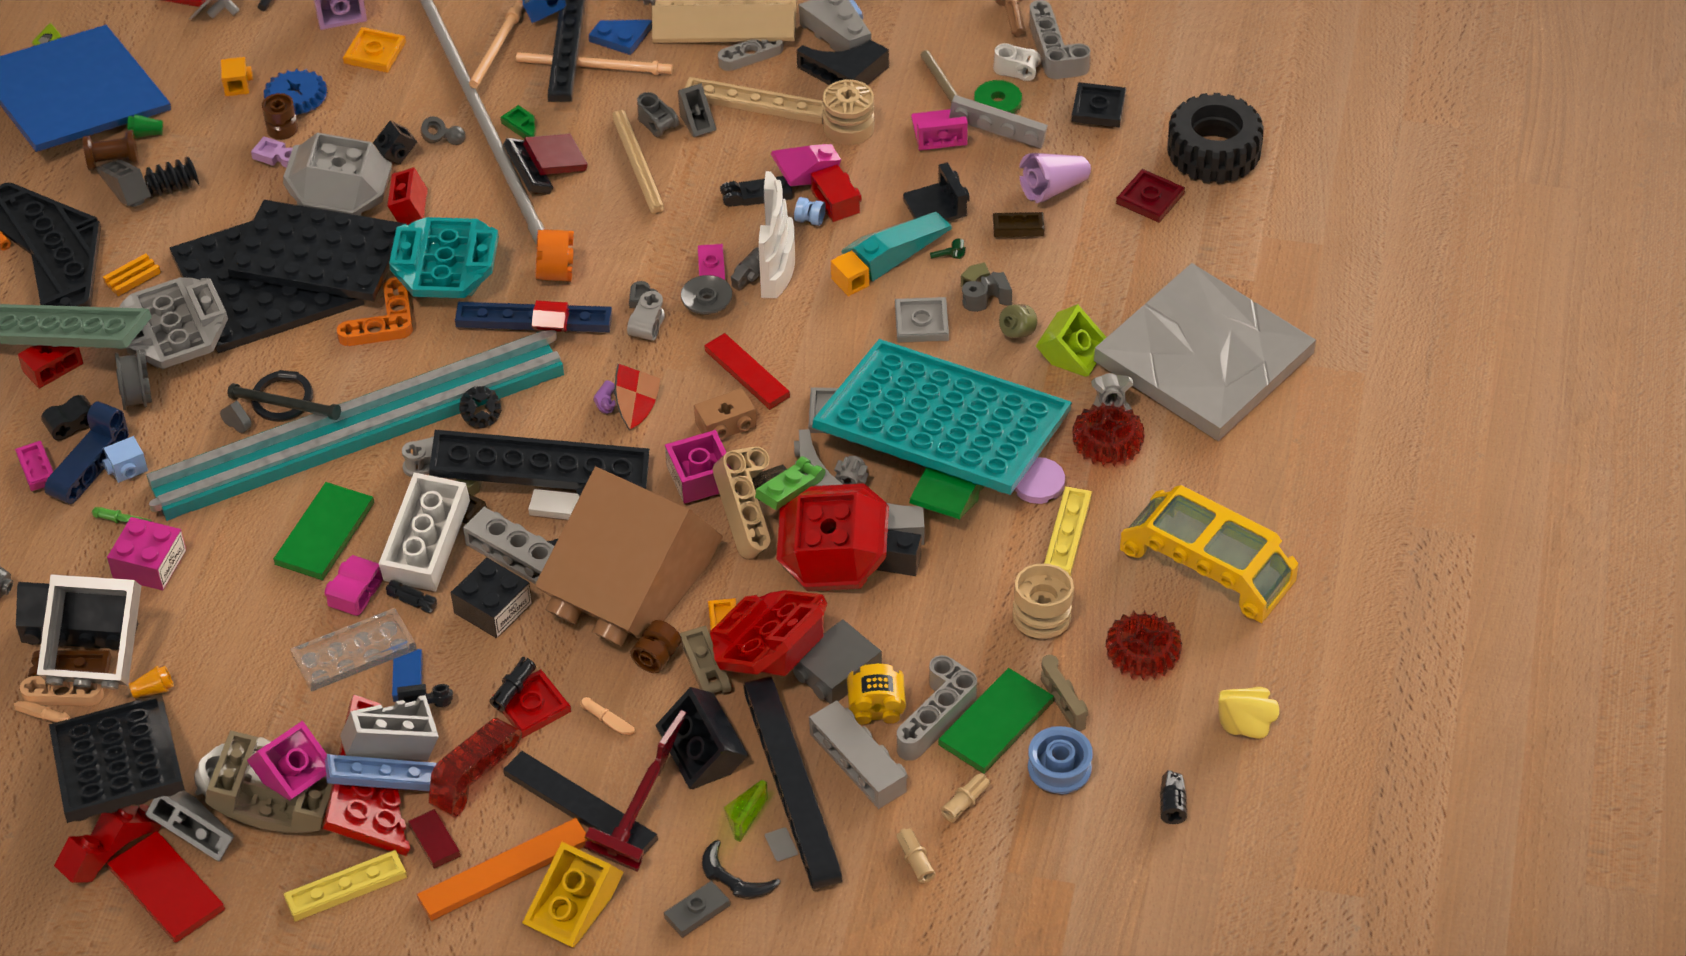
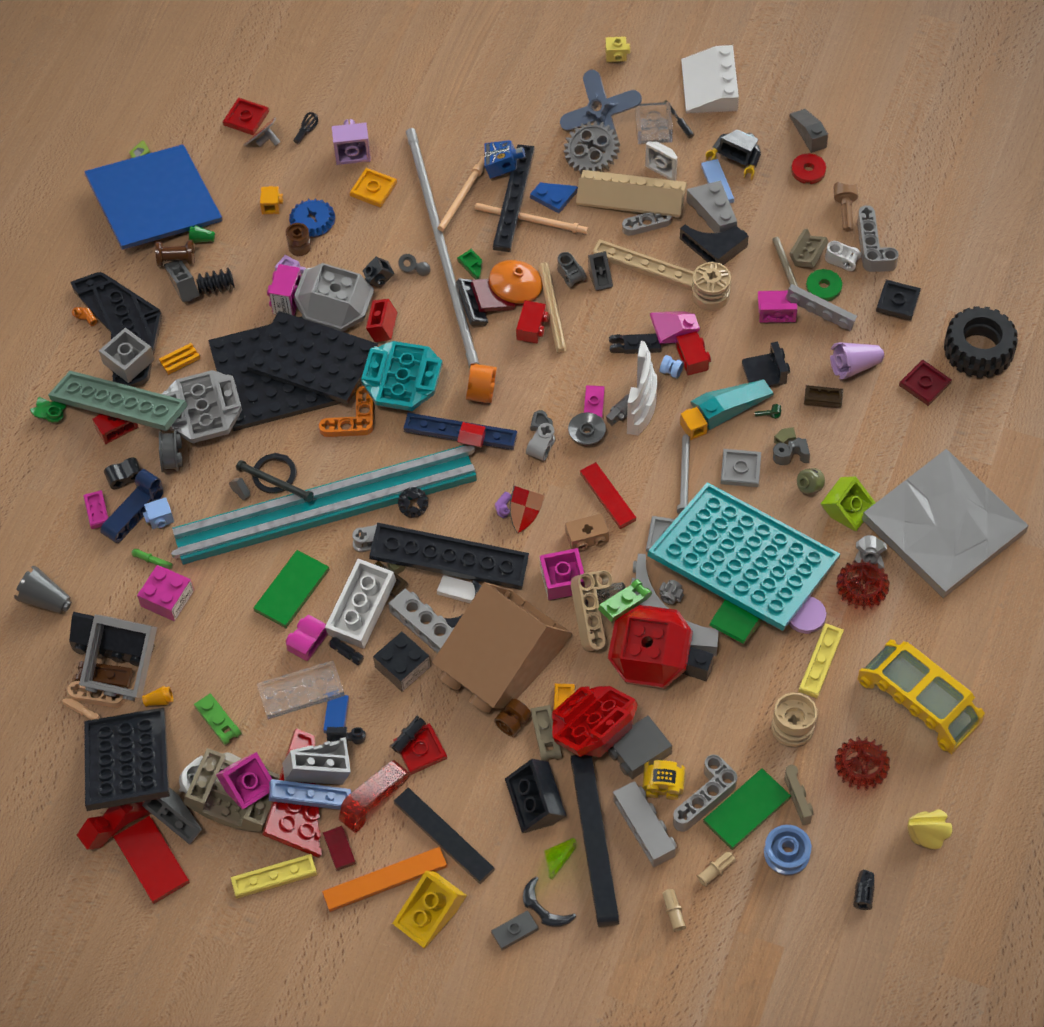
camera: 10 degrees right, 10 degrees up
(57, 271) = (126, 355): none -> light grey brick
(239, 701) = (217, 719): none -> bright green plate
(267, 172) = (283, 289): none -> dark pink brick
(584, 135) = (515, 281): none -> orange dish
(607, 717) = (473, 769): light nougat piece -> none
(612, 178) = (531, 322): none -> red brick
(616, 846) = (464, 873): dark red piece -> none
(781, 844) = (580, 886): light grey sticker -> none
(846, 332) = (684, 474): none -> light grey bar
(969, 60) = (807, 249): none -> dark tan bracket

